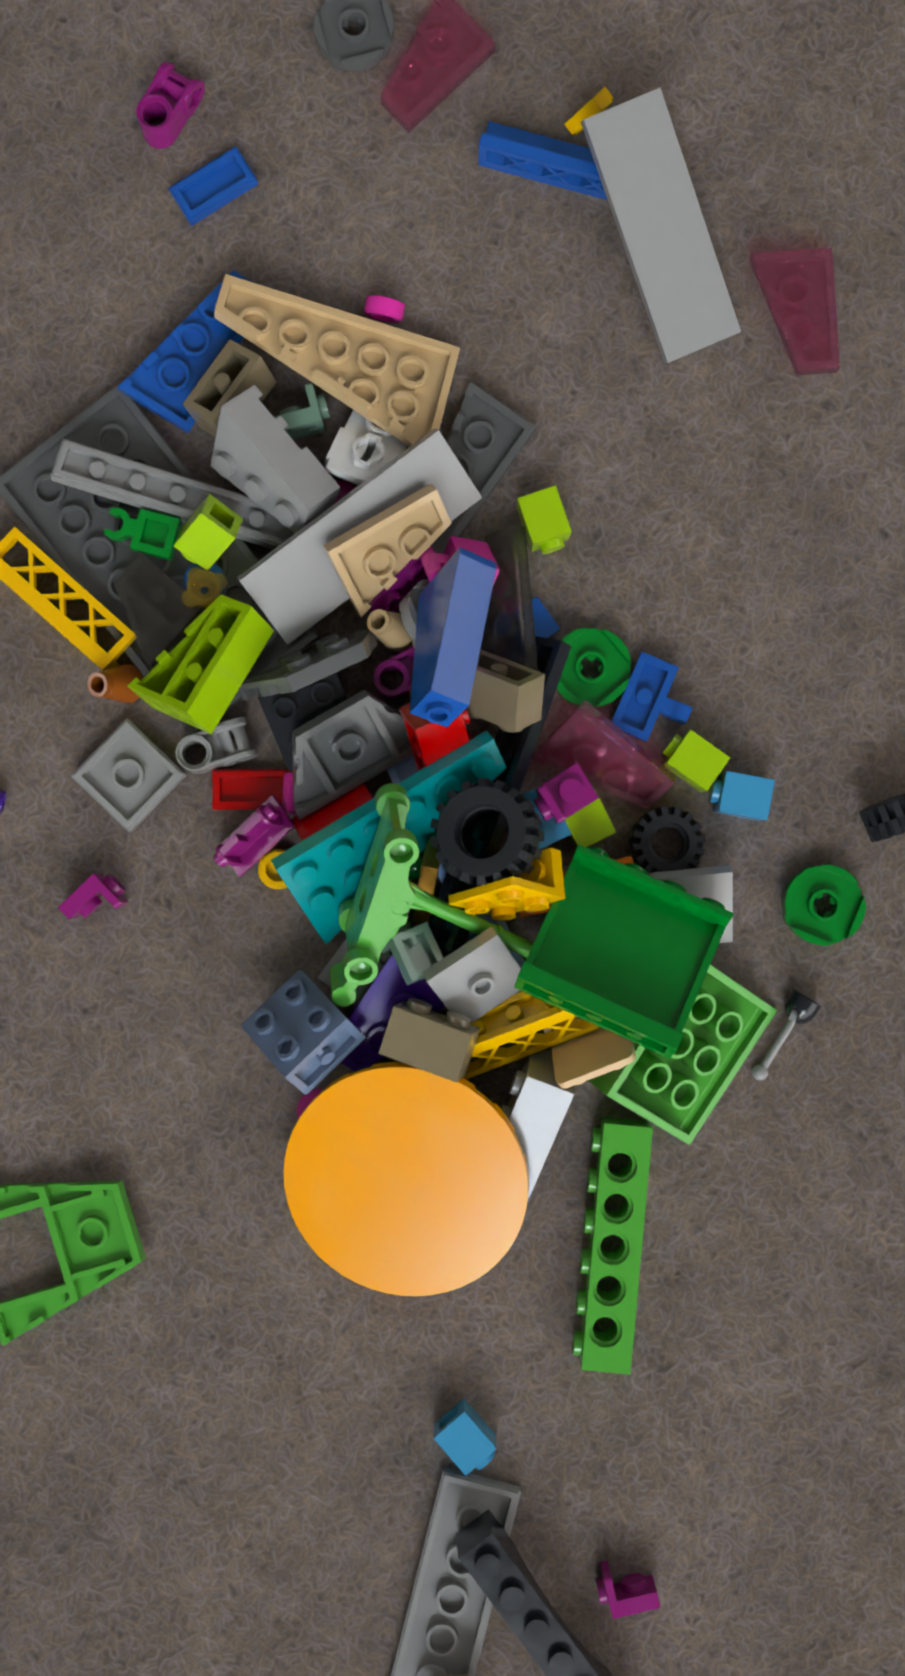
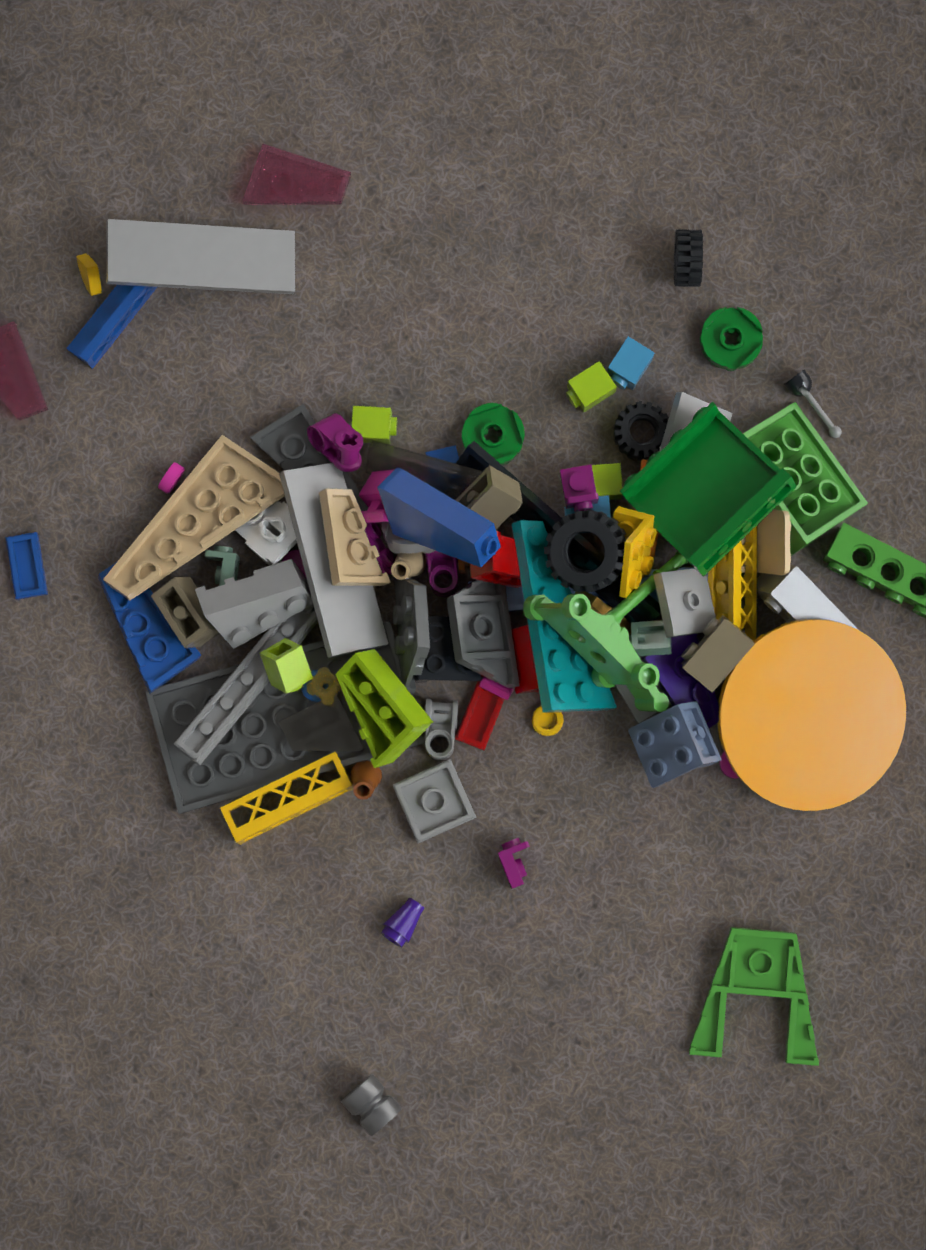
camera: 65 degrees left, 5 degrees down
(150, 533) = (267, 709): green plate -> none
(254, 837) = (517, 726): magenta hinge -> none
(503, 483) = (337, 442): none -> magenta piece
(606, 756) = (562, 449): clear pink wing -> none
(647, 698) = (532, 403): blue plate -> none

